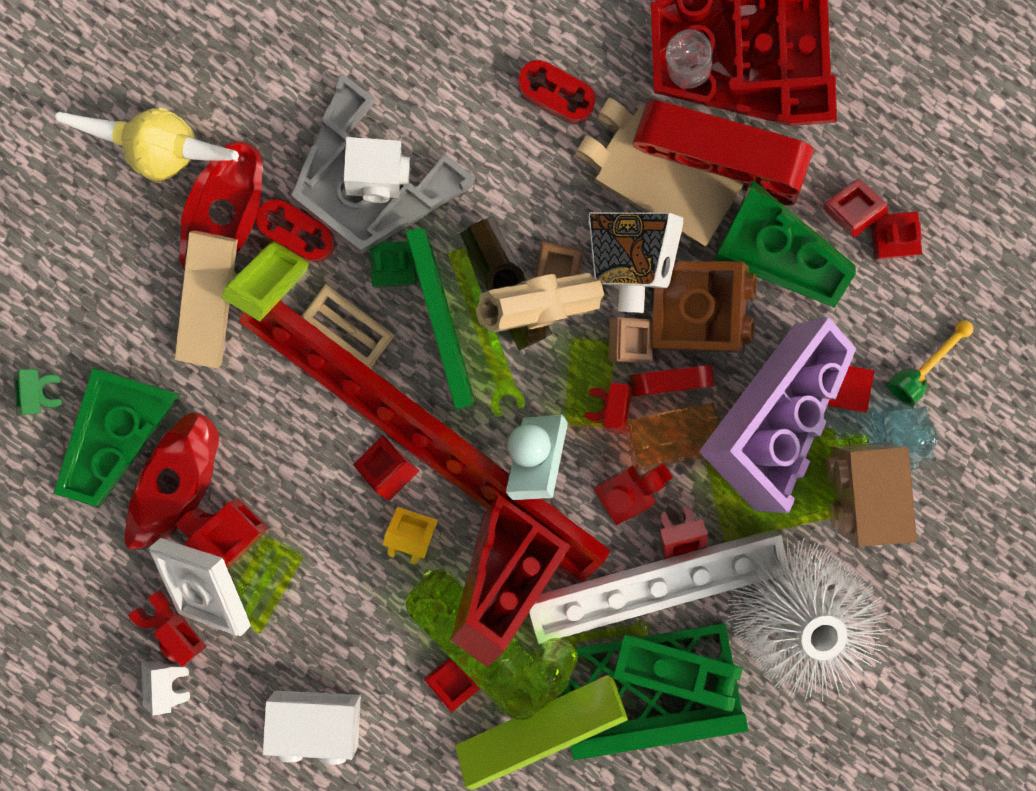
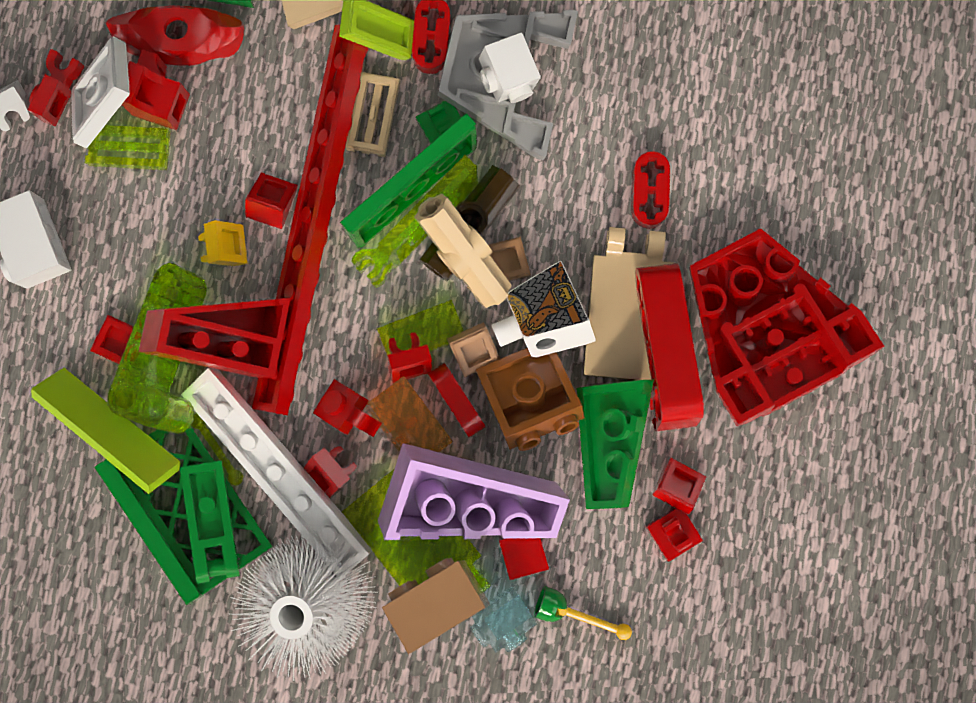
camera: 65 degrees right, 5 degrees down
(535, 456) = (336, 313): light aqua tile -> none
(689, 48) = (726, 268): clear wheel -> none

